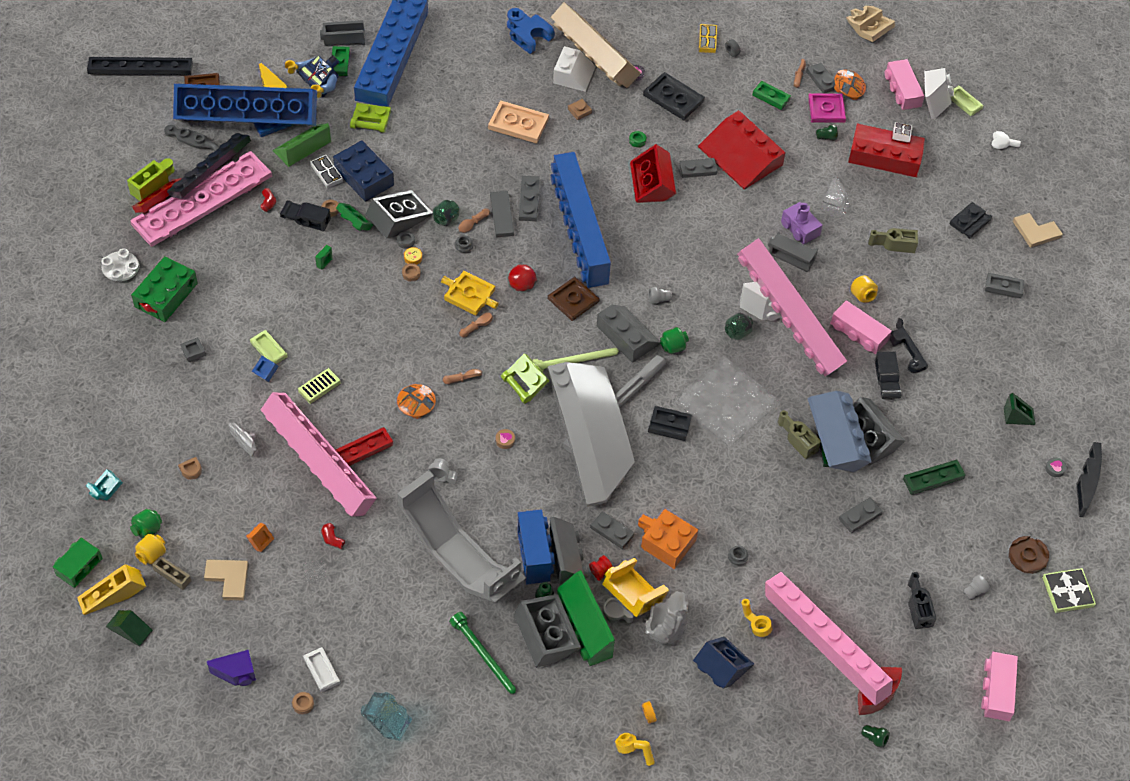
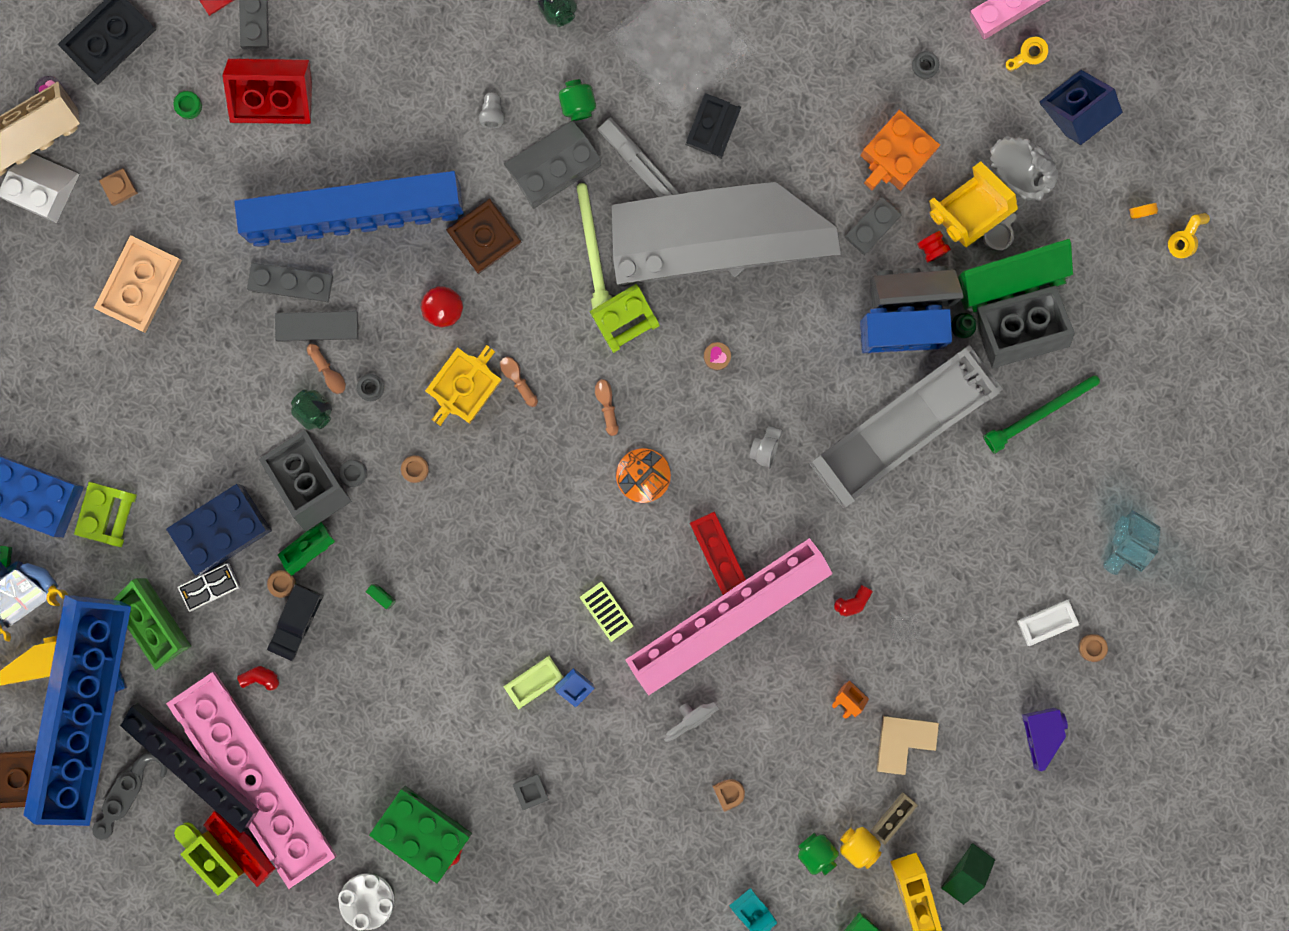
camera: 85 degrees left, 30 degrees up
(413, 256) = (385, 464): tile -> none

